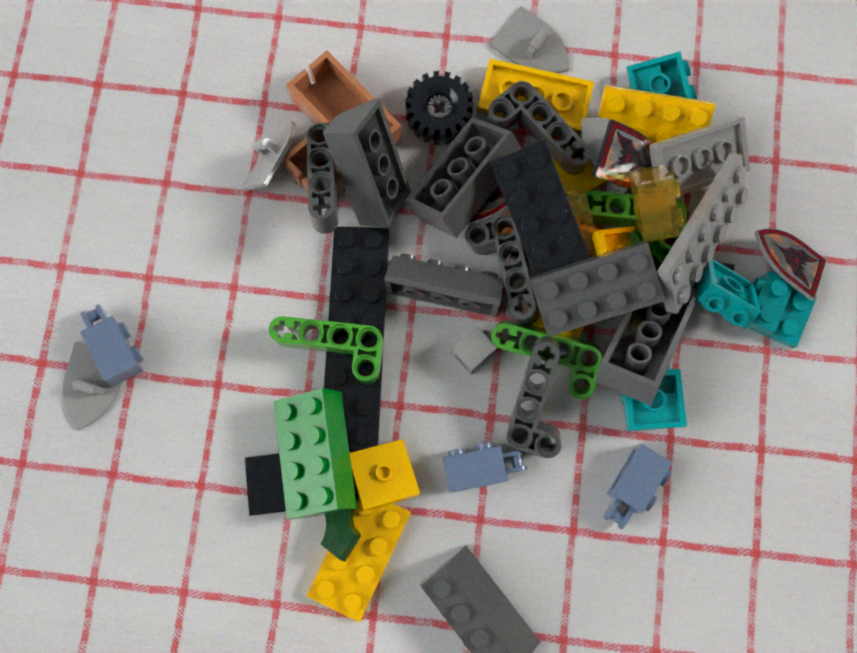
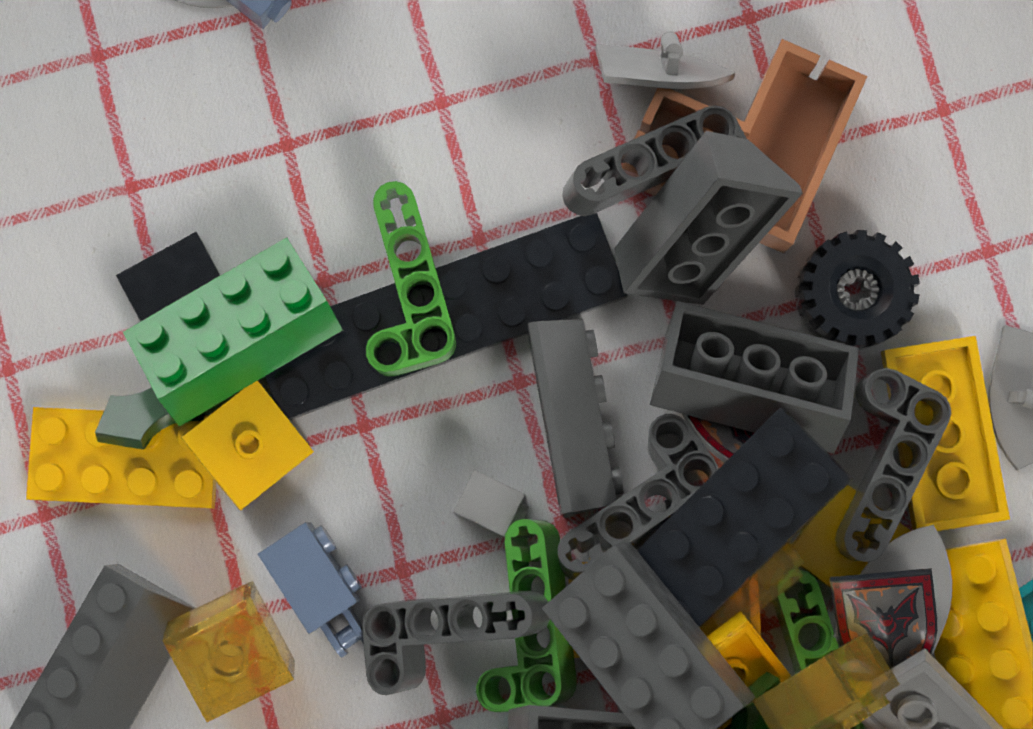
camera: 70 degrees right, 5 degrees up
(499, 532) = (229, 651): none -> clear yellow brick

